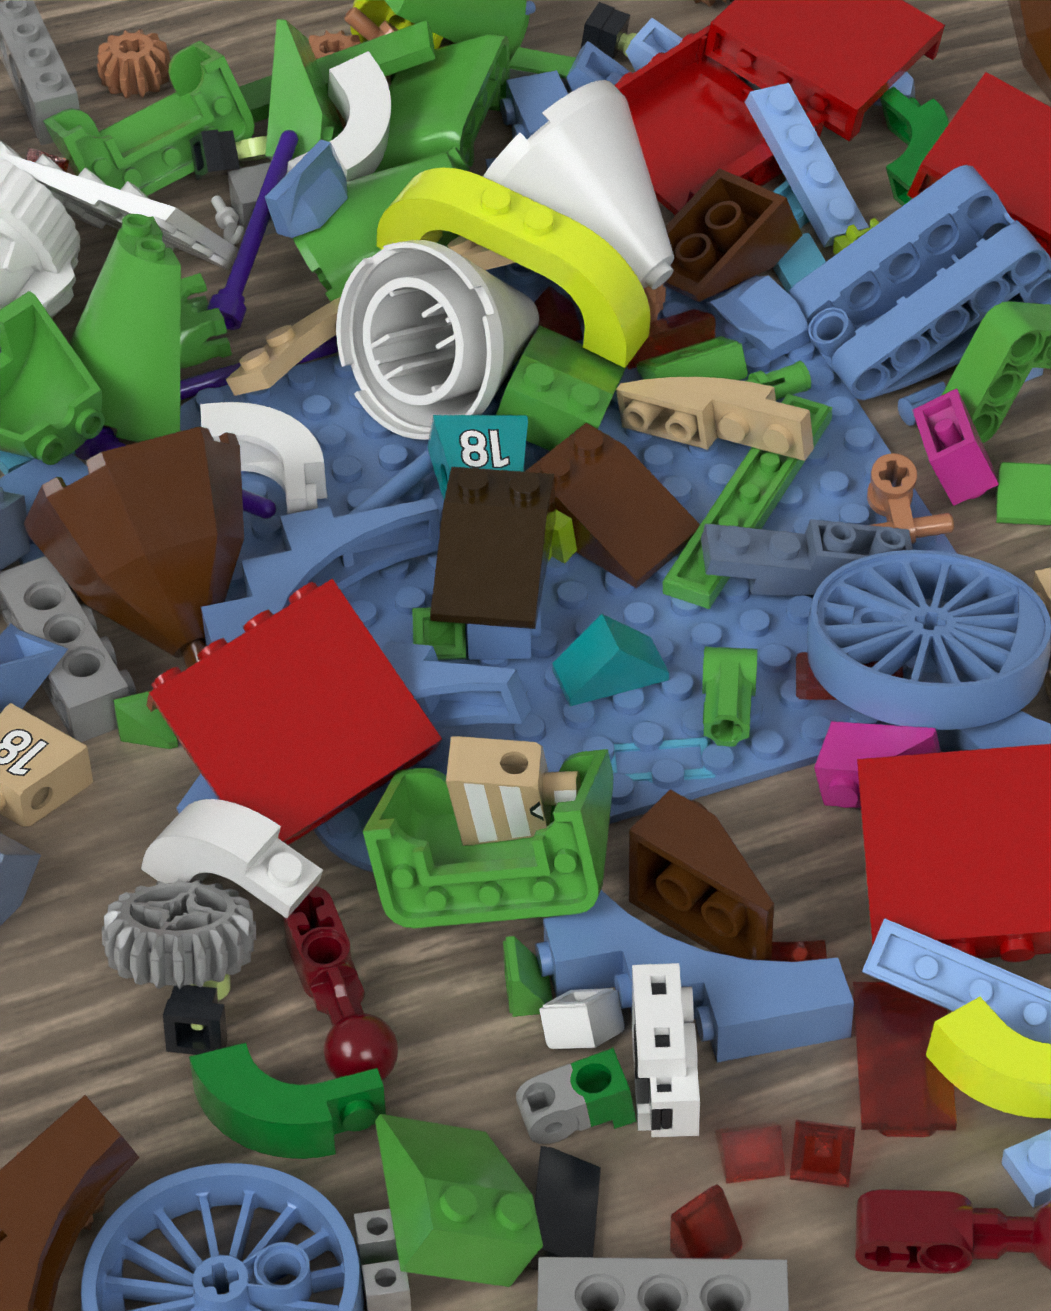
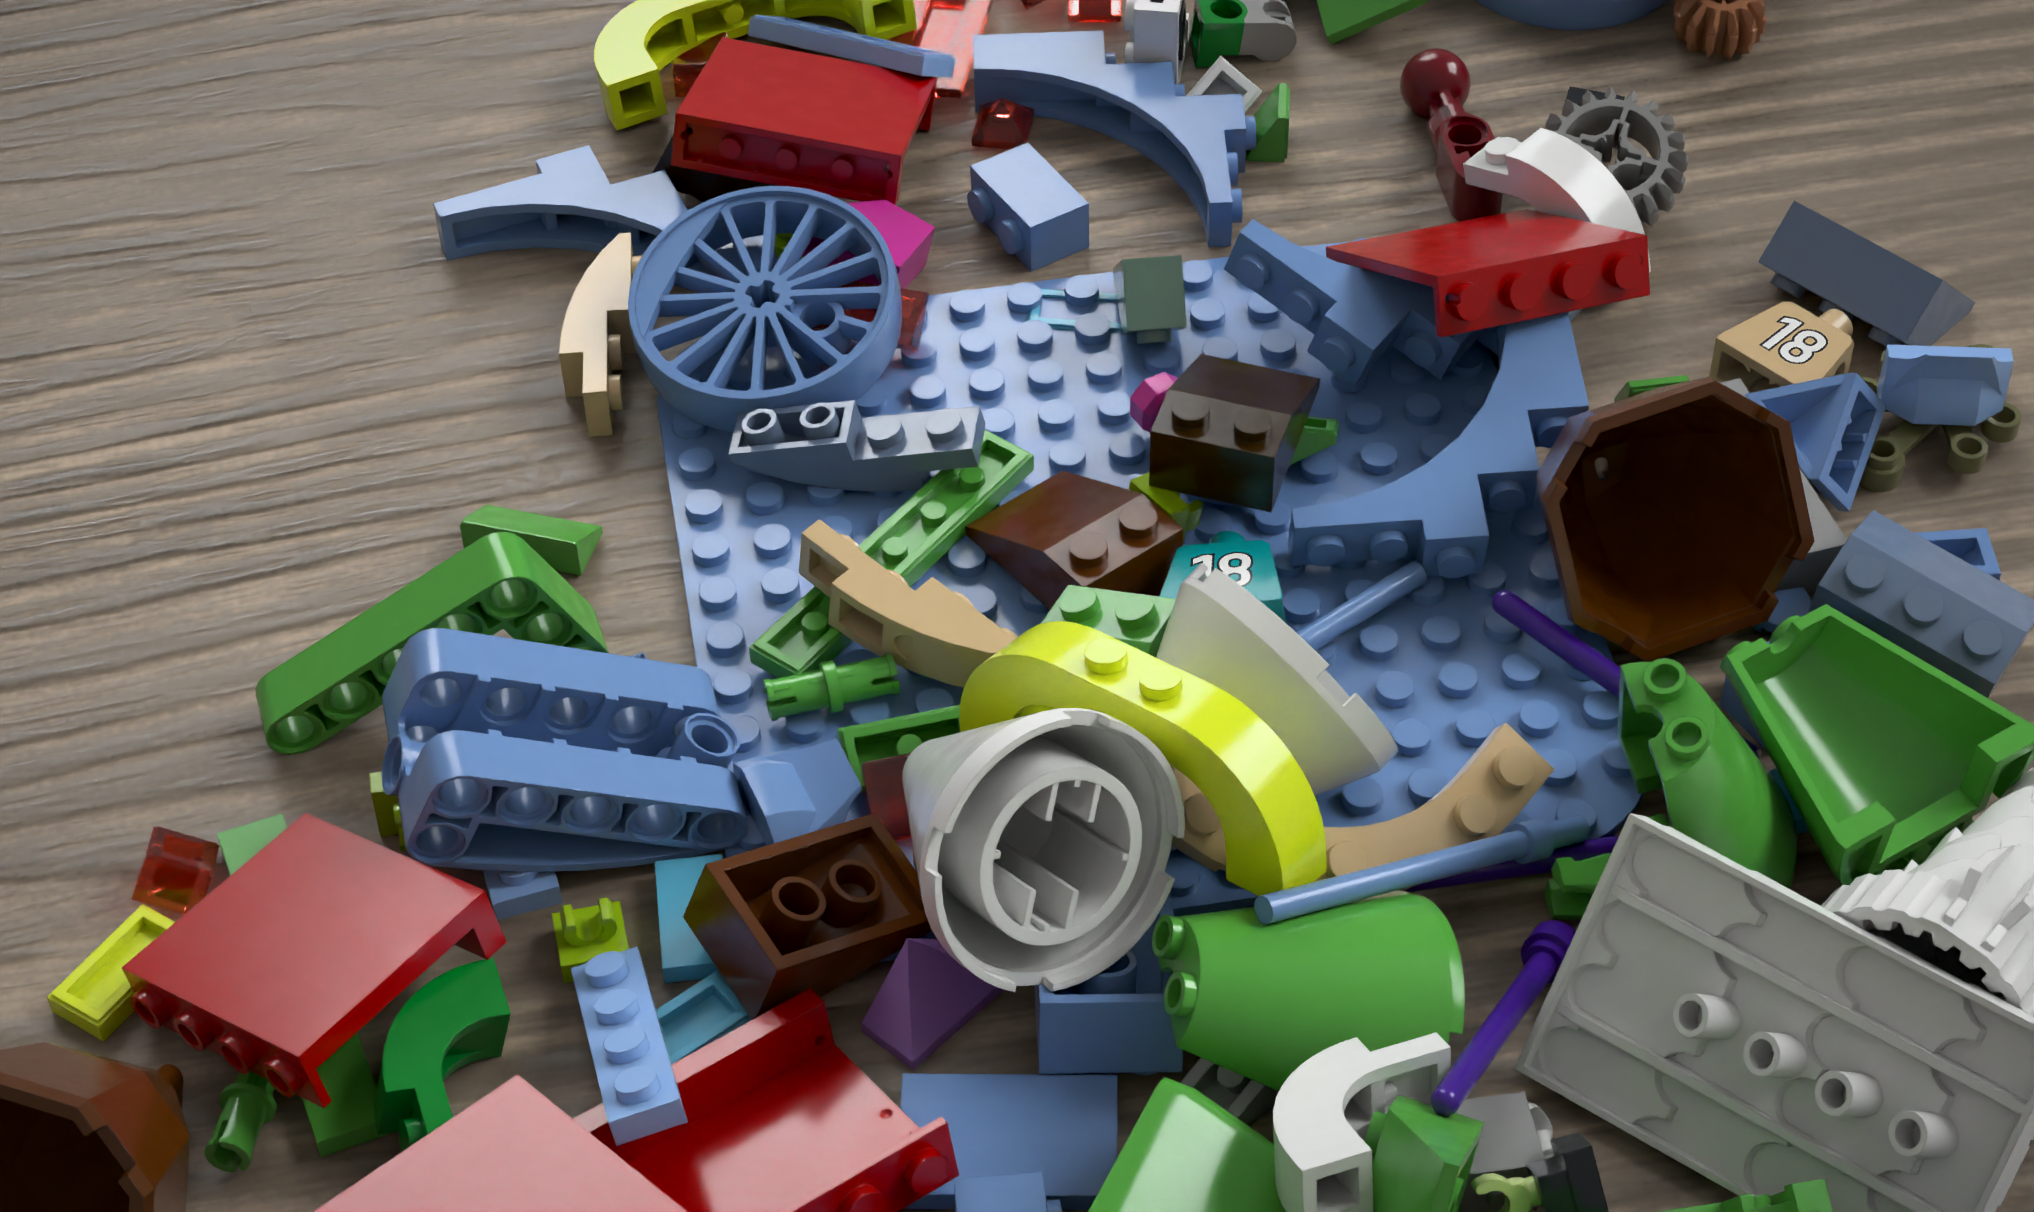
camera: 170 degrees left, 0 degrees up
(247, 341) = (1523, 842): none -> medium blue bar
(274, 447) = (1496, 680): white arch -> none
(278, 1115) = (1516, 46): green arch -> none
(308, 192) = (1424, 917): medium blue slope -> none
(436, 881) = (1277, 167): bright green windscreen -> none
(503, 788) = (1268, 172): tan torso -> none
(564, 627) = (1148, 399): none -> dark pink tile
(600, 719) = (1151, 297): none -> sand green slope
(607, 662) = (1109, 368): teal slope -> none
(697, 880) = (1091, 137): reddish brown slope -> none
(728, 687) = (995, 326): bright green piece -> none
(765, 842) = (1029, 207): none -> medium blue brick
(891, 496) = (724, 500): nougat piece -> none
(955, 447) = (624, 558): dark pink slope -> none

